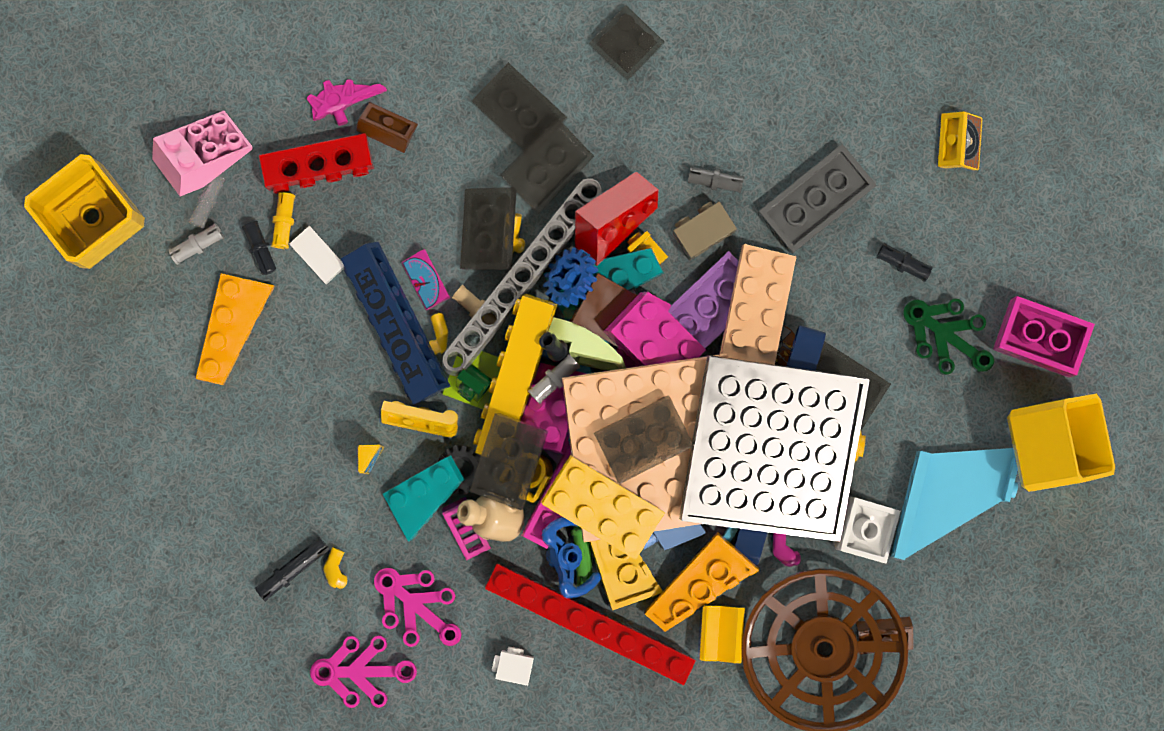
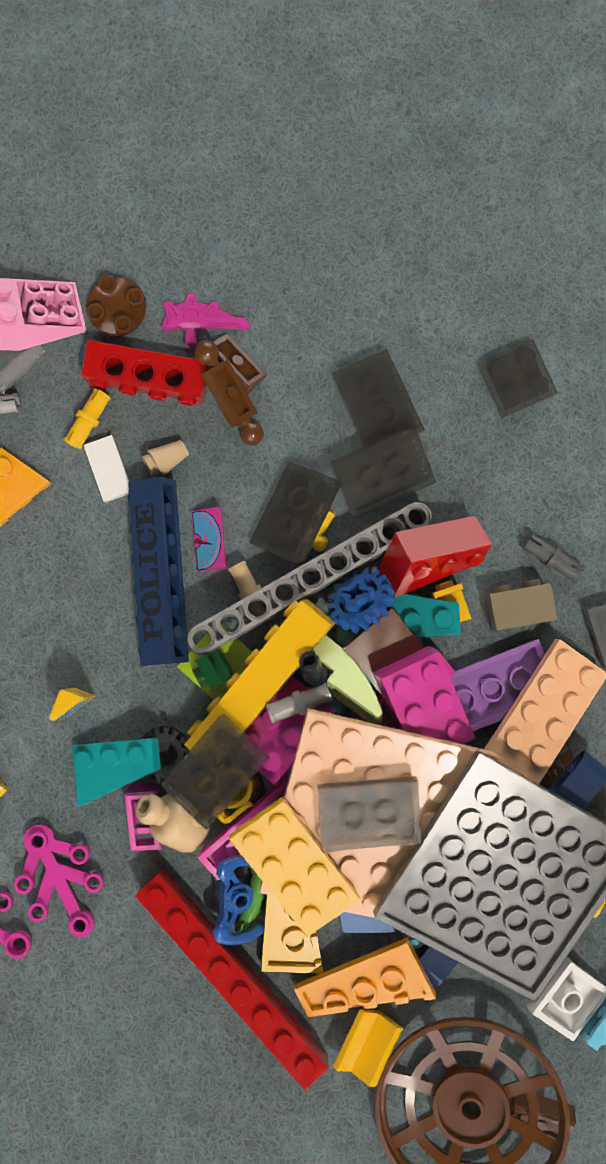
camera: 25 degrees right, 0 degrees up
(259, 248) = (51, 437): black axle -> none
(268, 116) = (116, 306): none -> reddish brown dish
(361, 227) = (164, 458): none -> tan cone
(393, 152) = (229, 392): none -> reddish brown plate
(420, 419) = (142, 683): yellow plate -> none
(441, 333) = (202, 602): yellow arm -> none
(513, 666) = (132, 988): white brick -> none
(783, 552) = (468, 985): dark pink arm -> none

